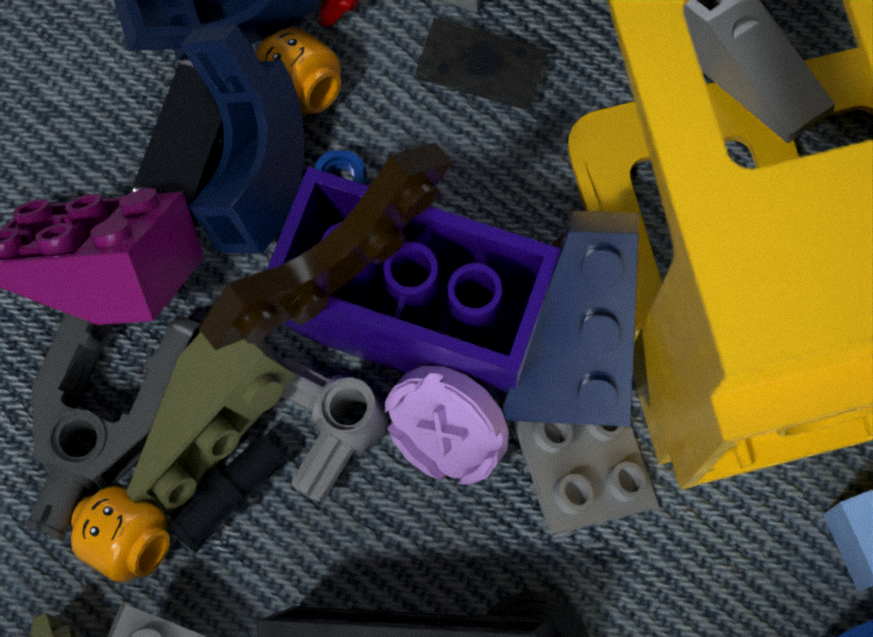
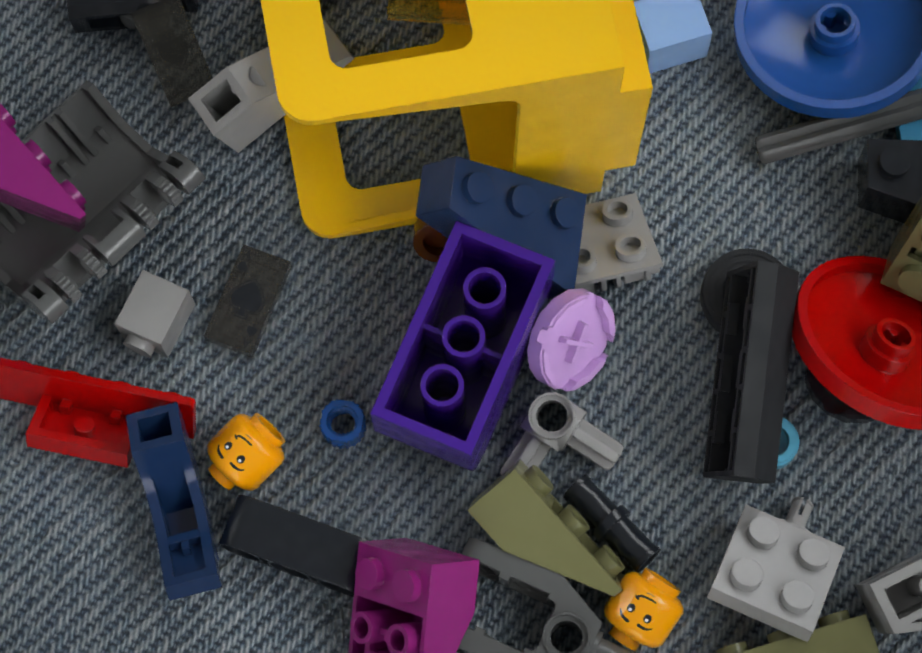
camera: 85 degrees left, 0 degrees up
(261, 146) = (320, 482): dark blue arch -> none
(370, 233) = (444, 353): dark brown plate -> none

